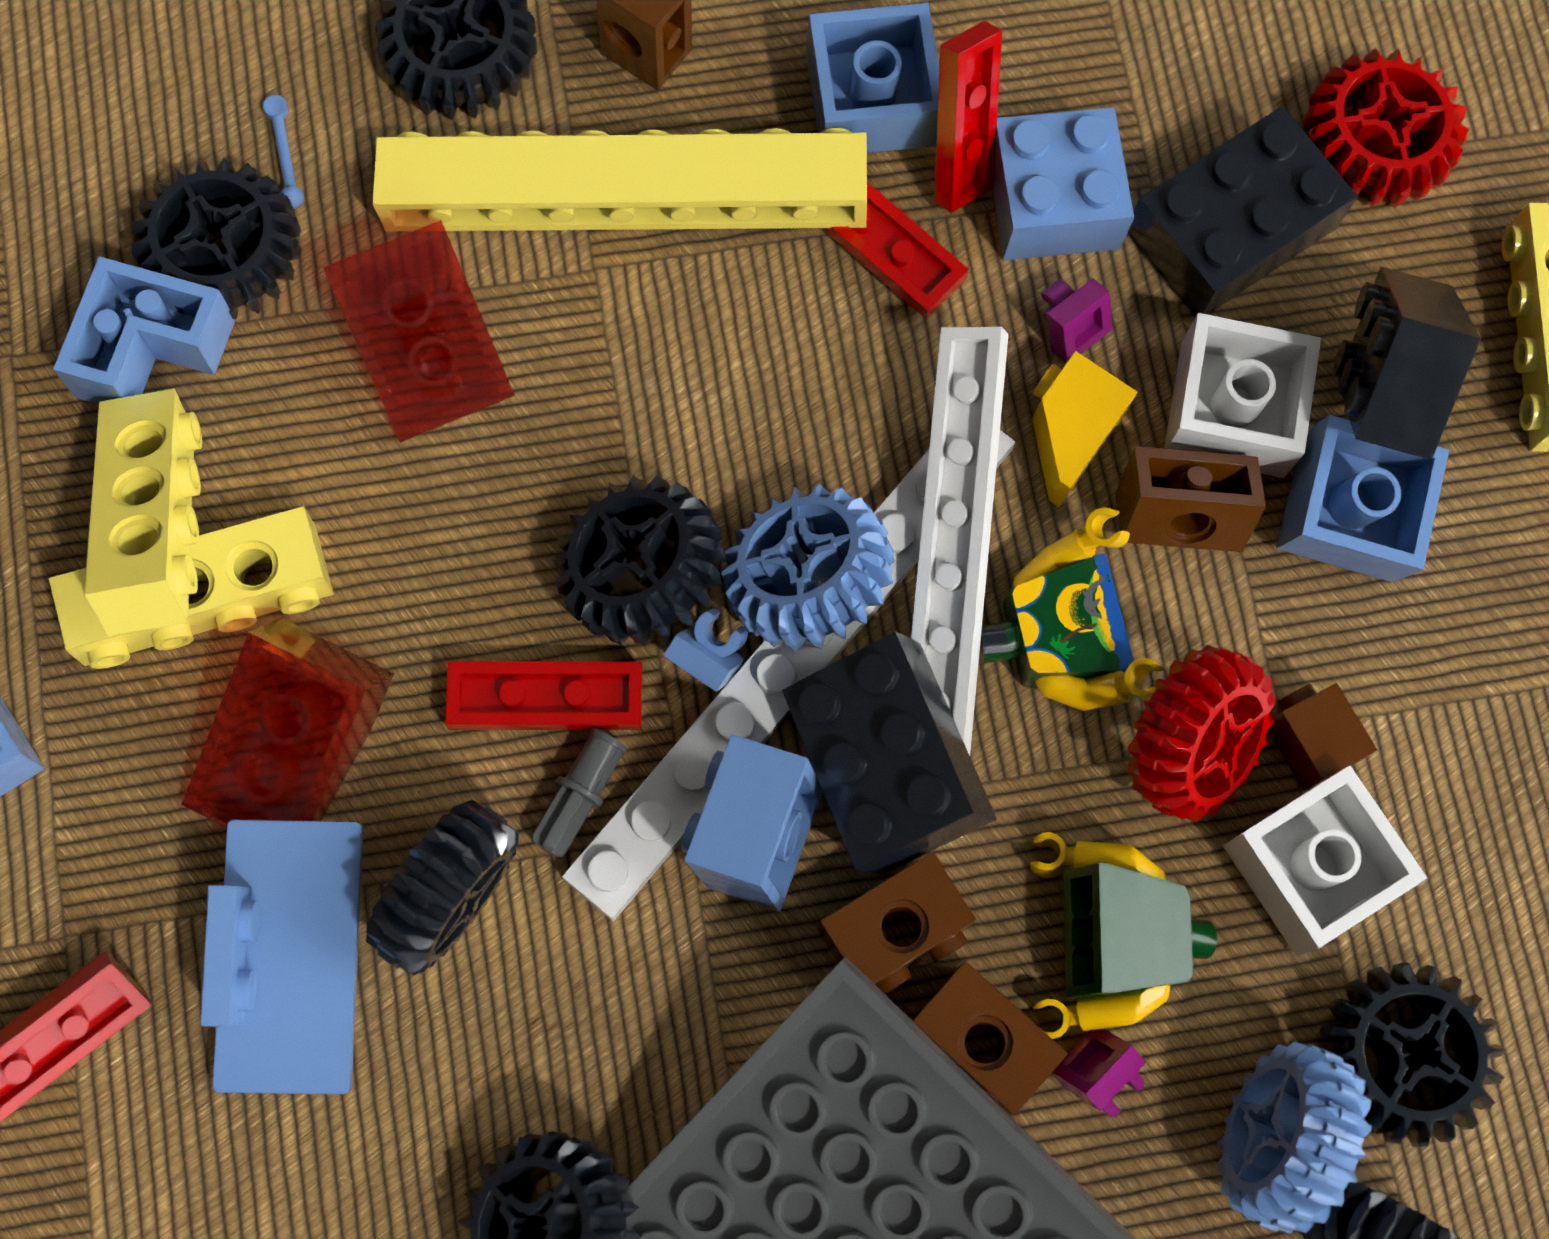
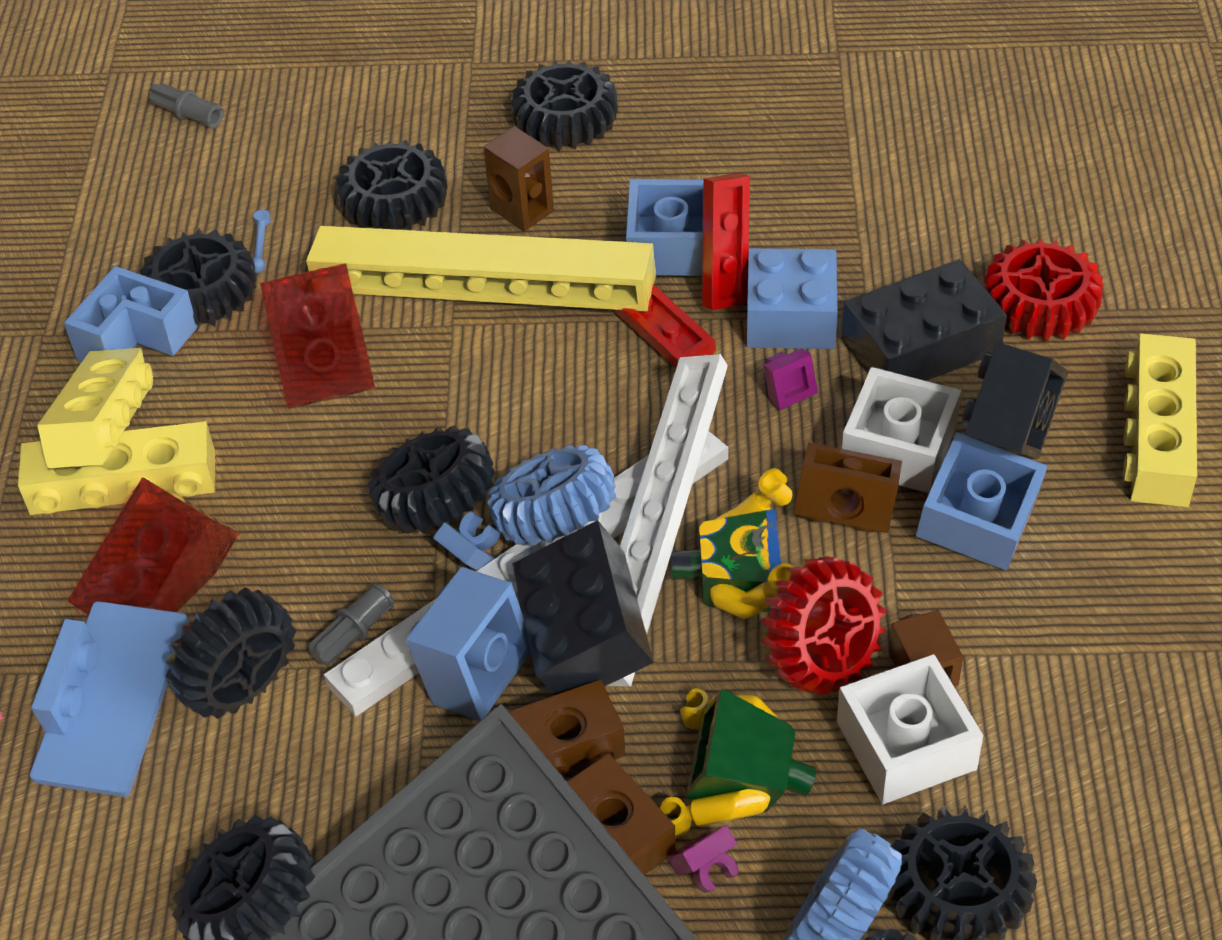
camera: 20 degrees right, 25 degrees down
(544, 695) = (343, 561): red plate -> none
(1075, 420) = (778, 434): yellow slope -> none

